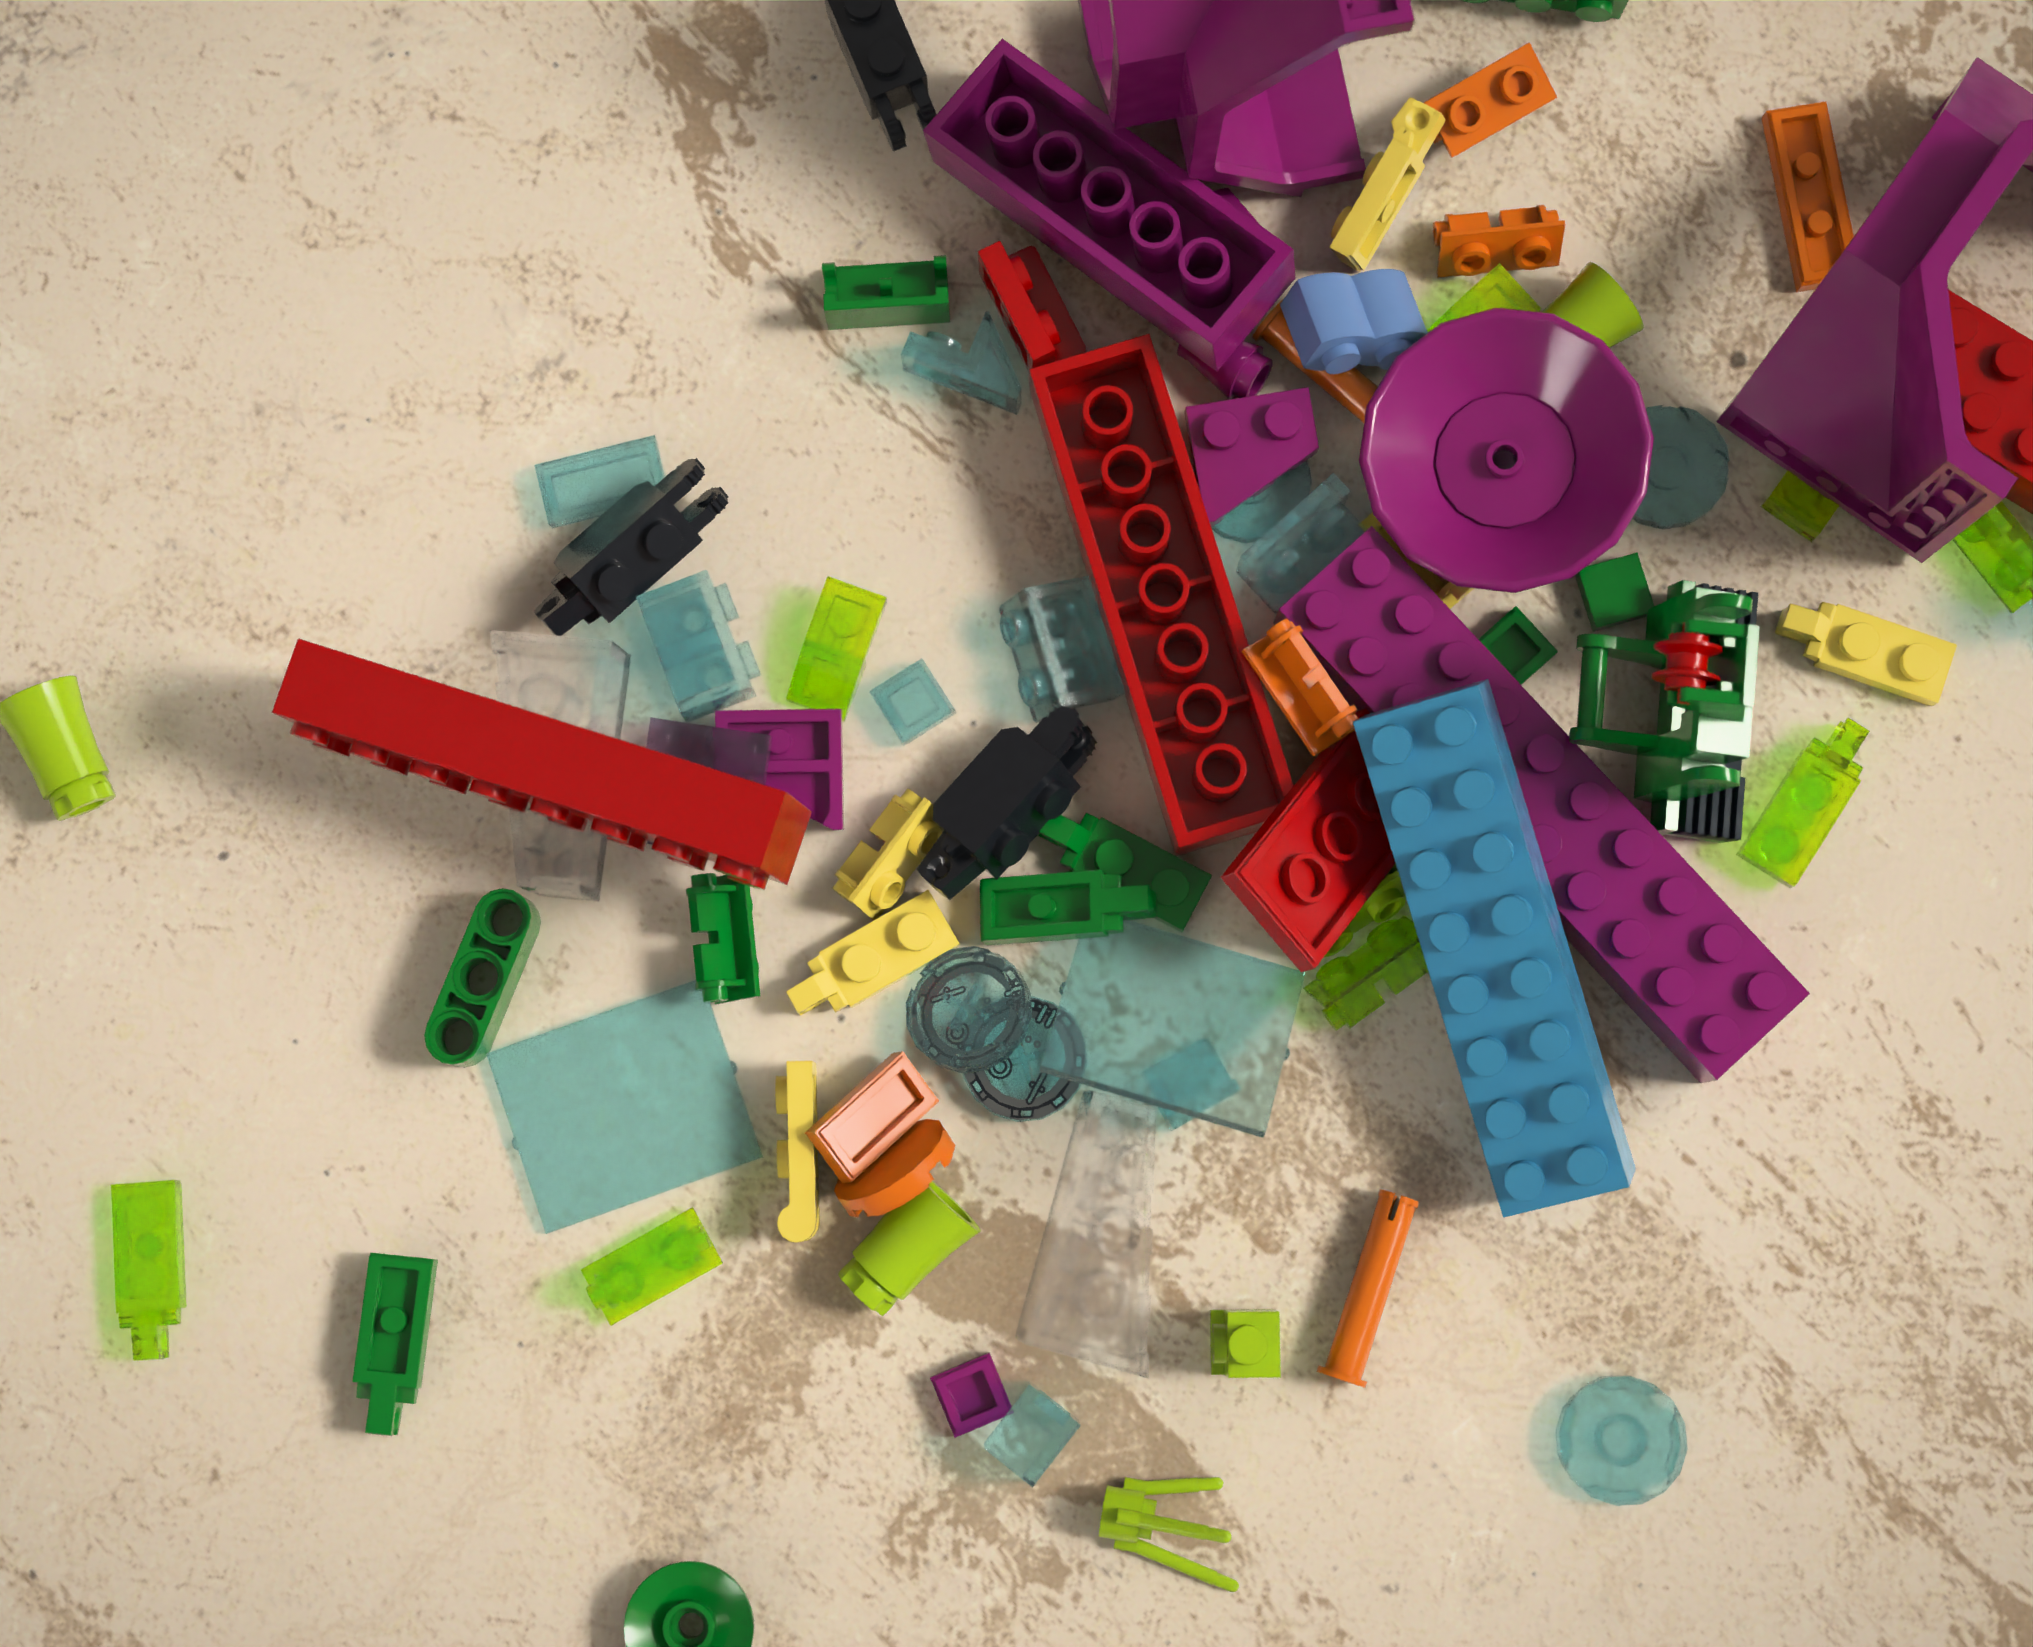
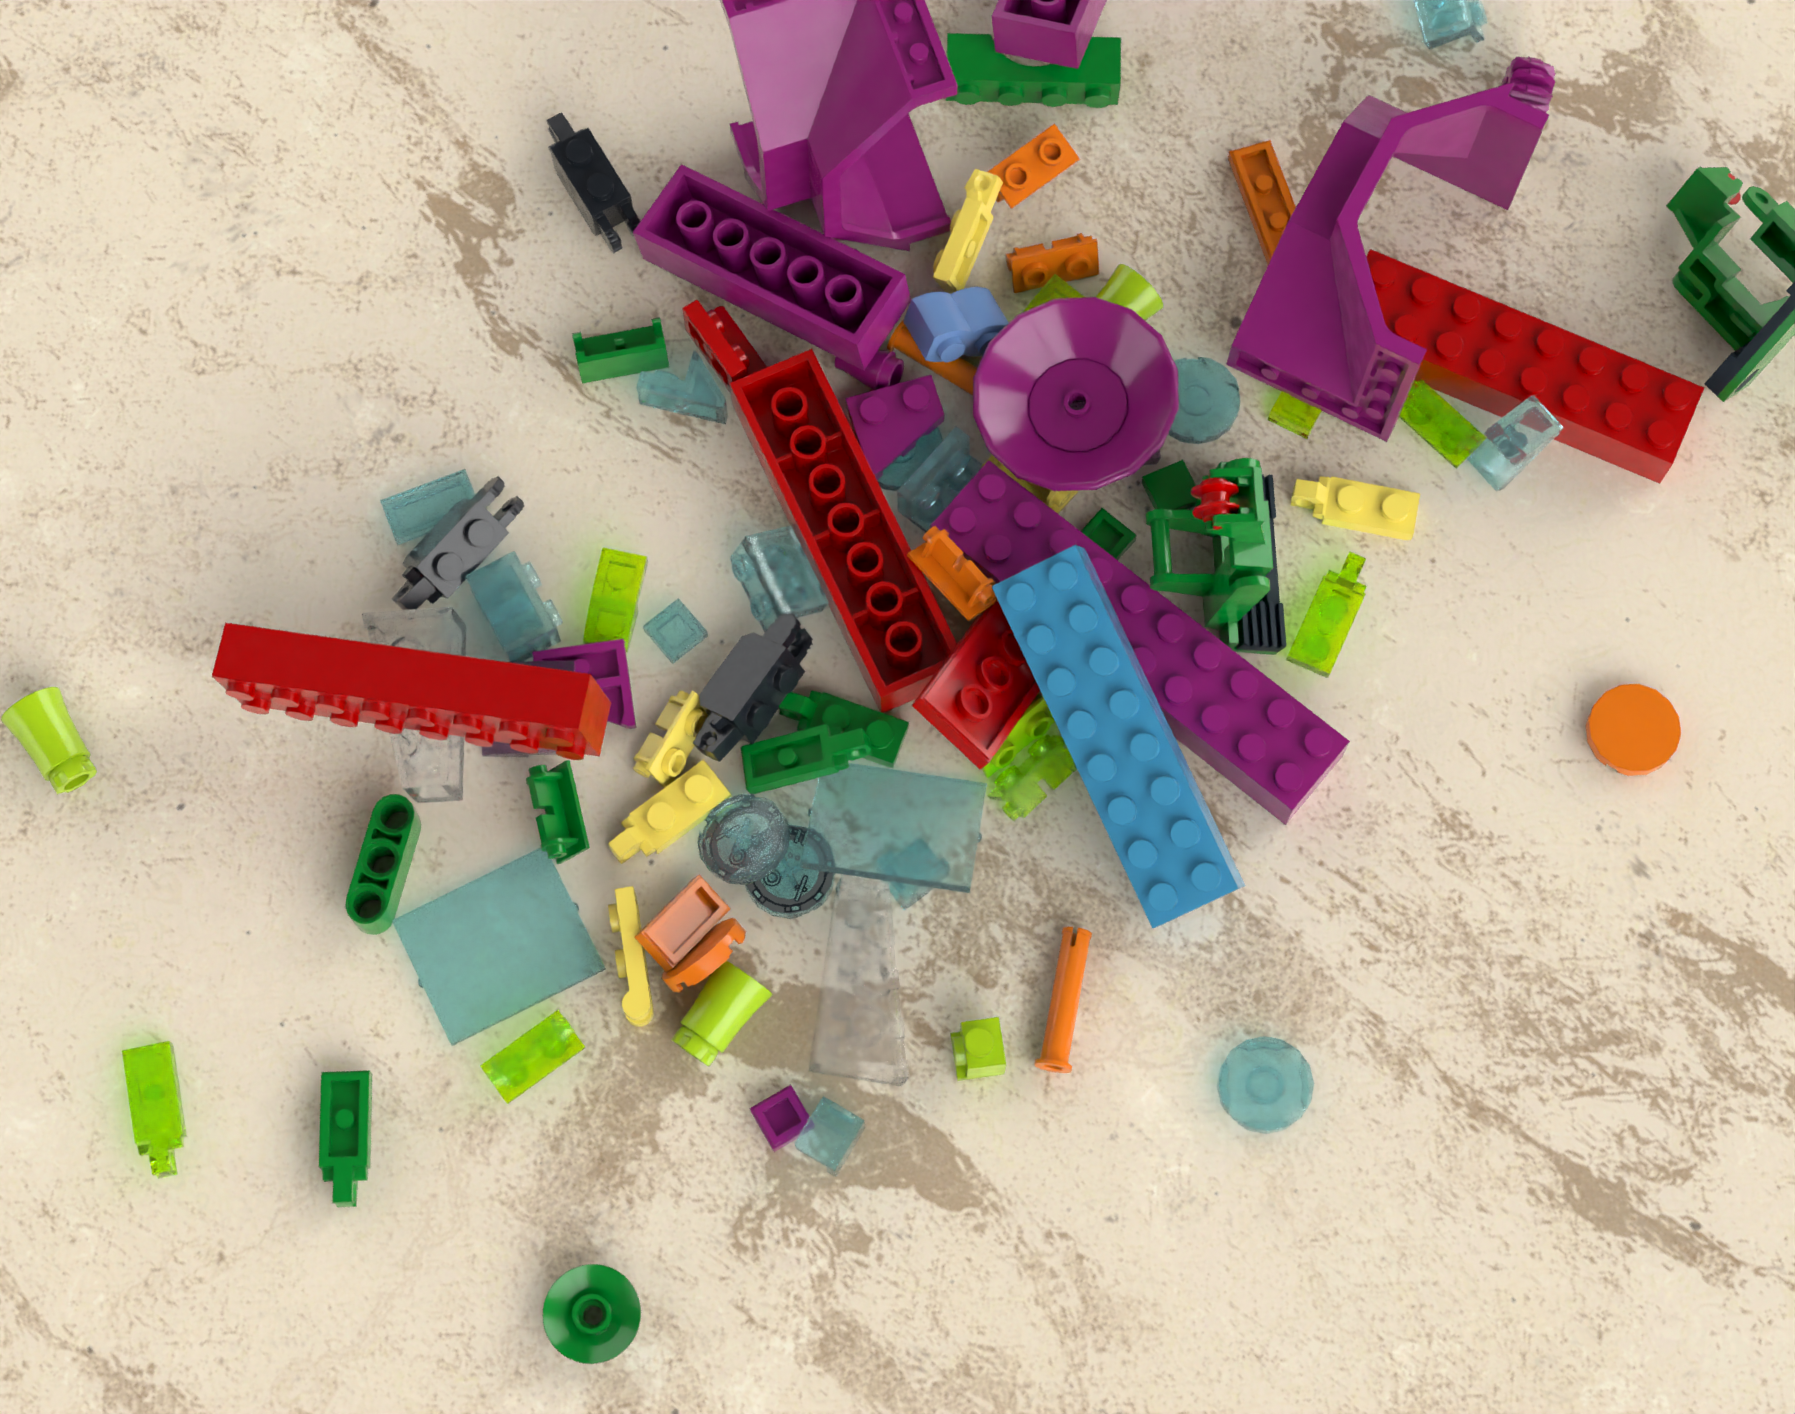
camera: 10 degrees left, 10 degrees down
(1131, 1515) = (912, 1185): lime plant -> none

